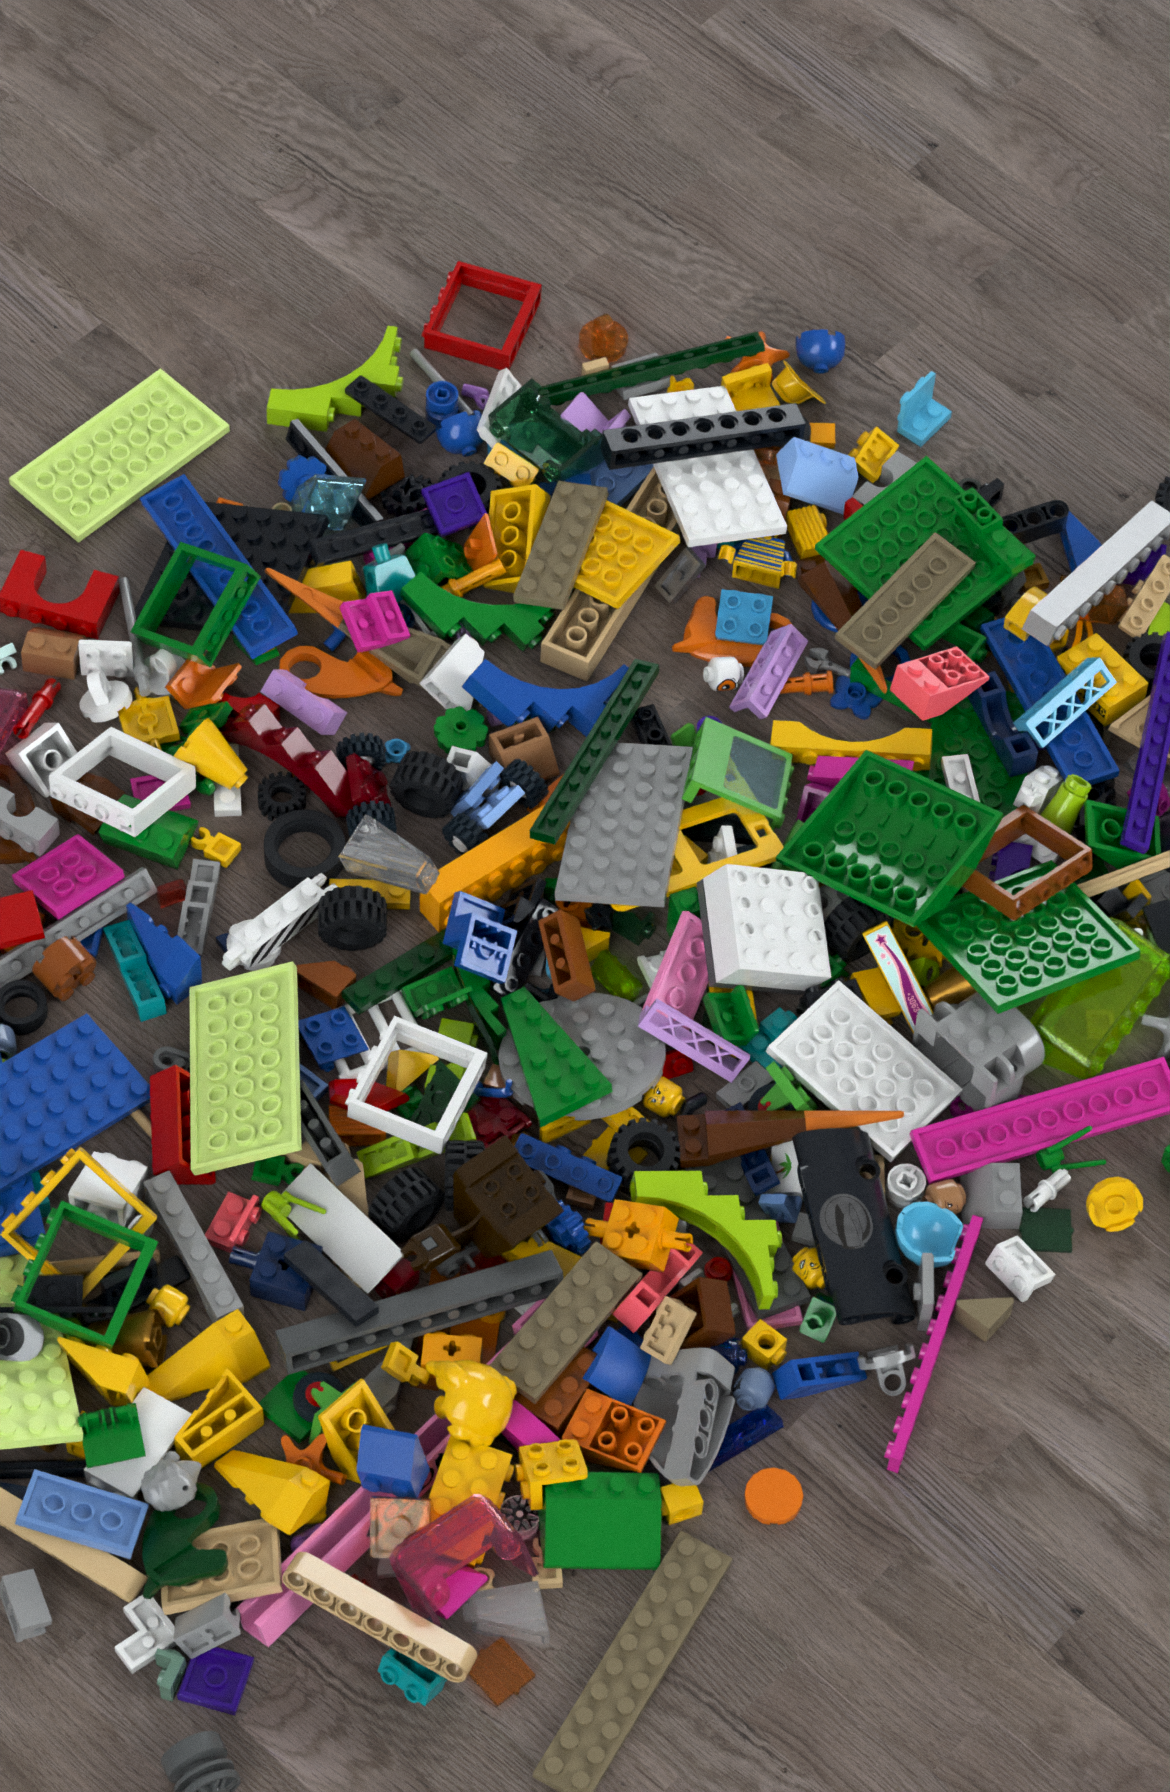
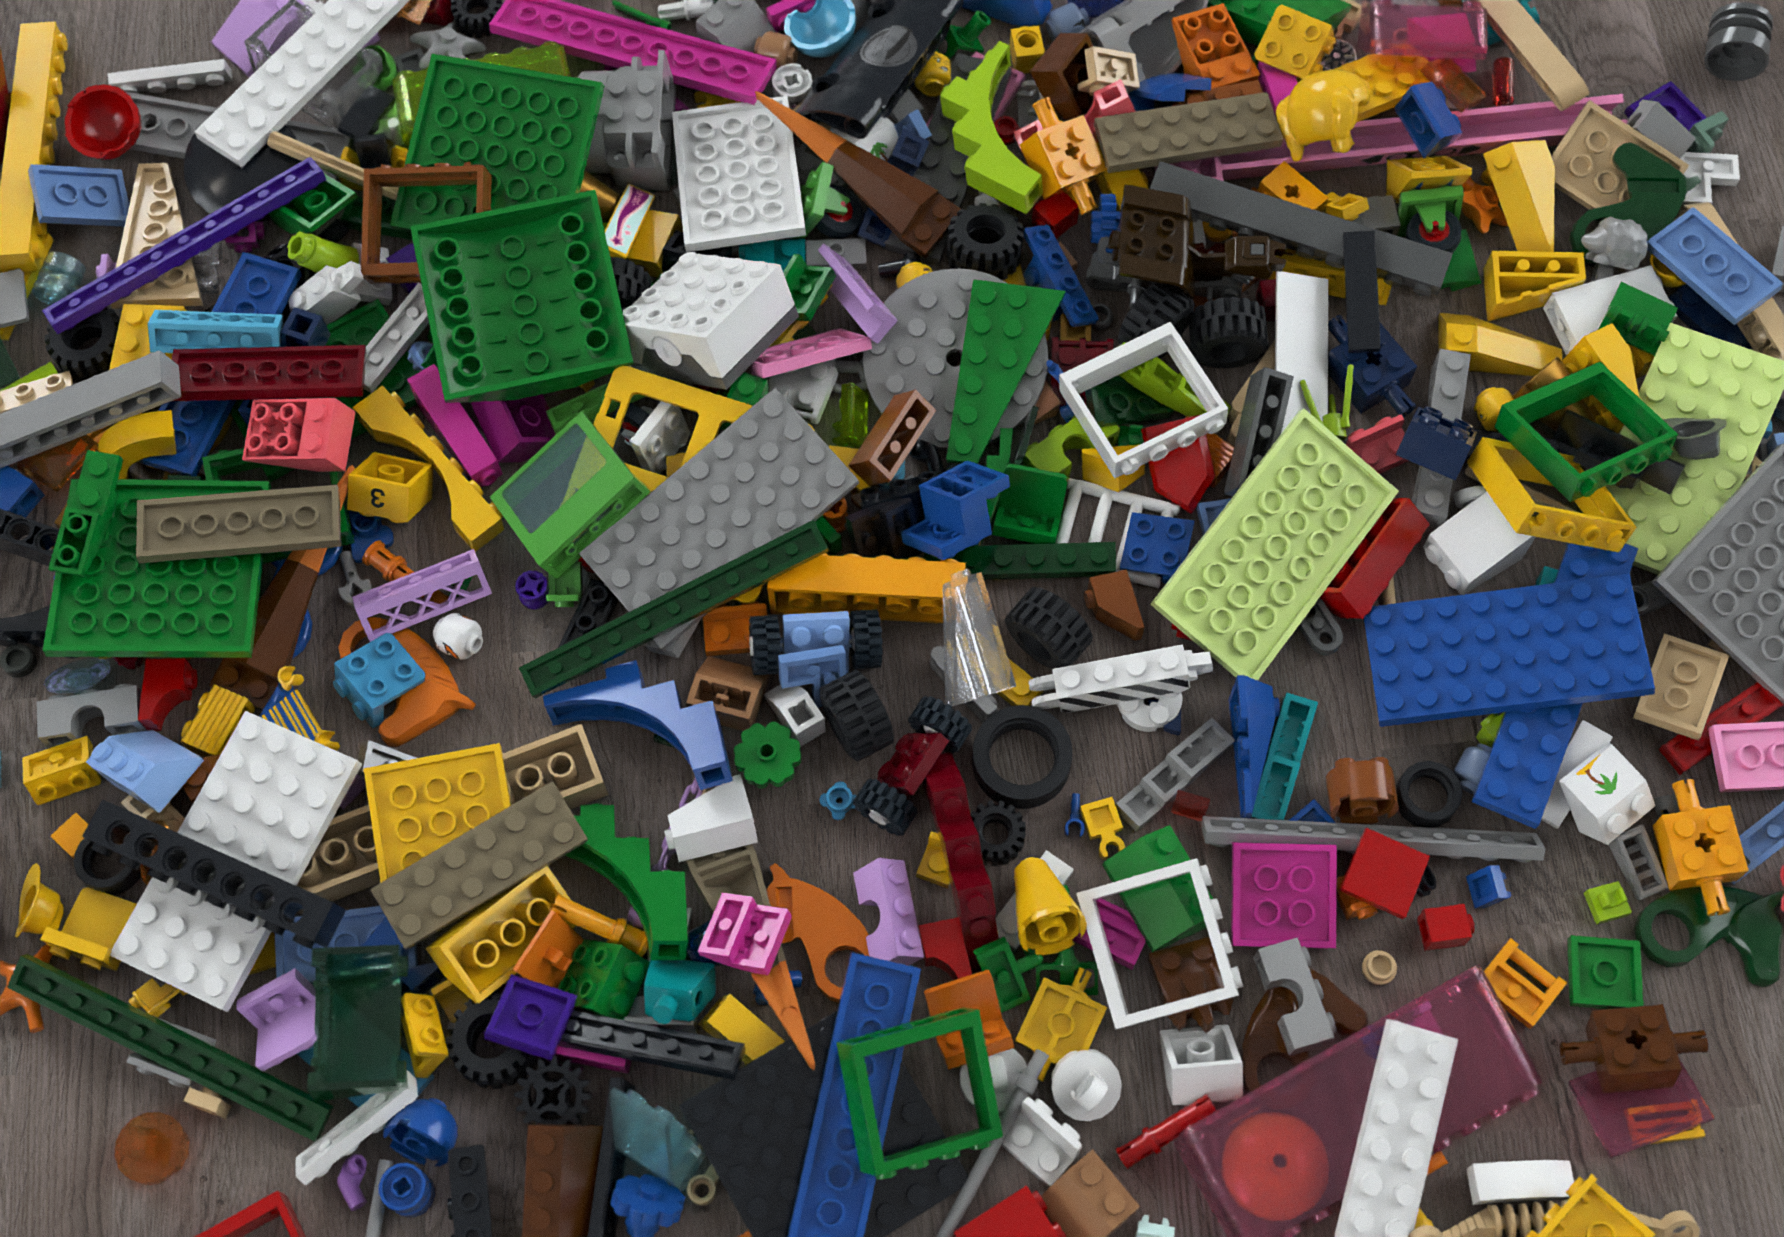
camera: 135 degrees left, 10 degrees up
(189, 1212) = (1437, 442): none -> dark blue slope
(239, 838) = (1074, 815): none -> blue hand
(858, 711) = (390, 487): none -> yellow brick
(999, 699) = (271, 372): none -> dark red plate

